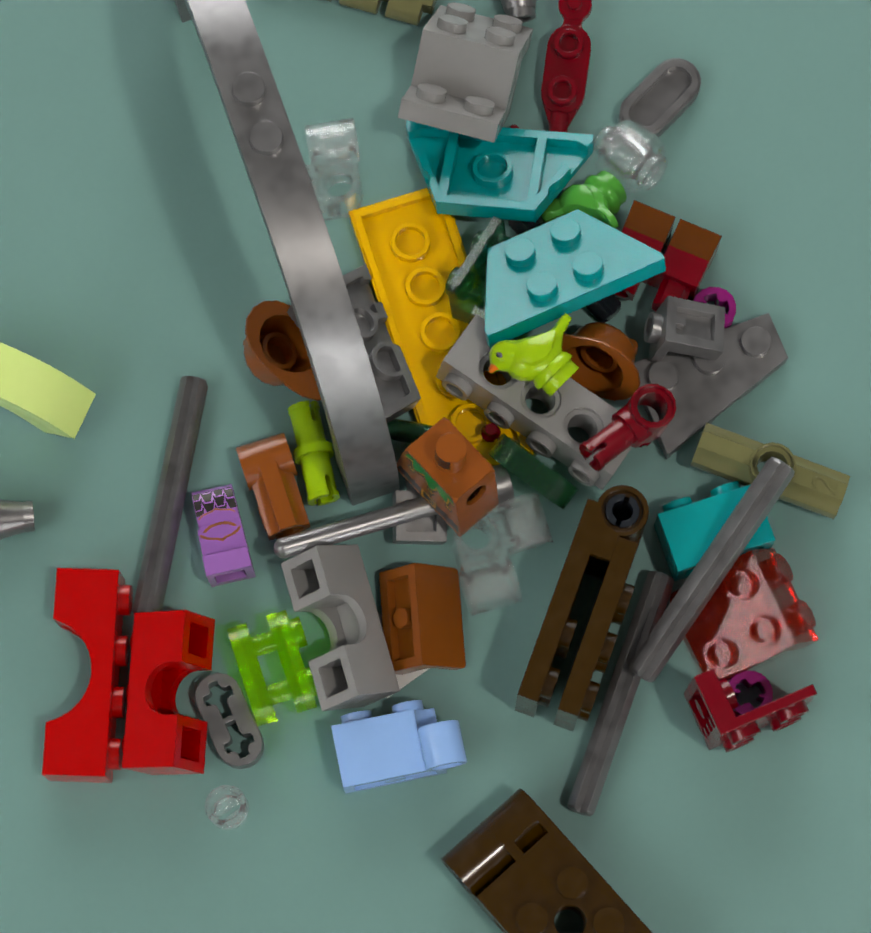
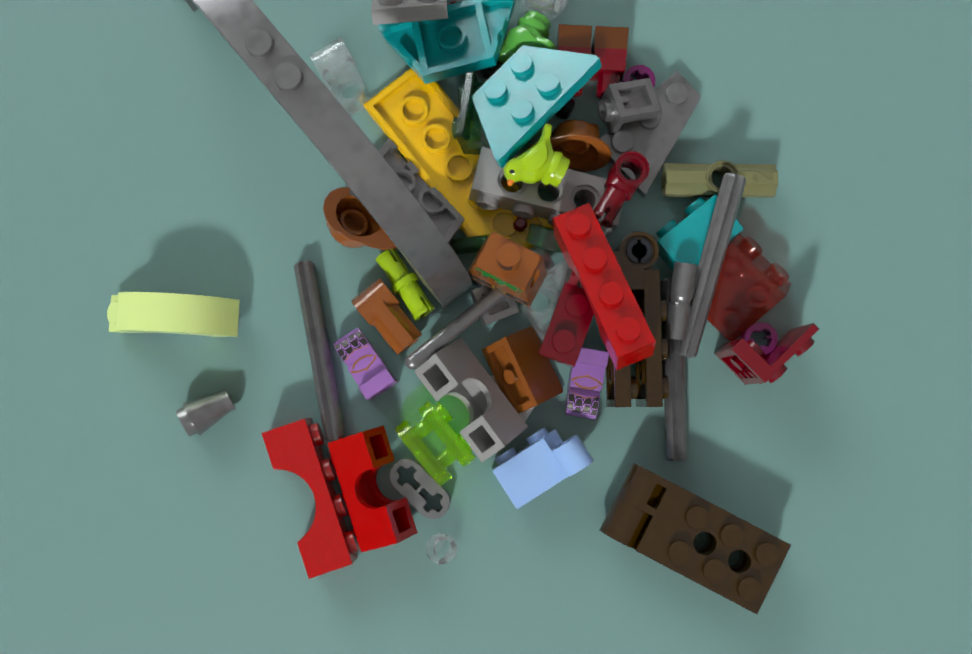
camera: 20 degrees left, 10 degrees up
(497, 663) = (585, 384): none -> medium lavender leg
(509, 567) = (568, 325): none -> dark red hinge
(557, 536) = (608, 292): none -> red arch
(653, 604) = (679, 306): none -> flat silver piece

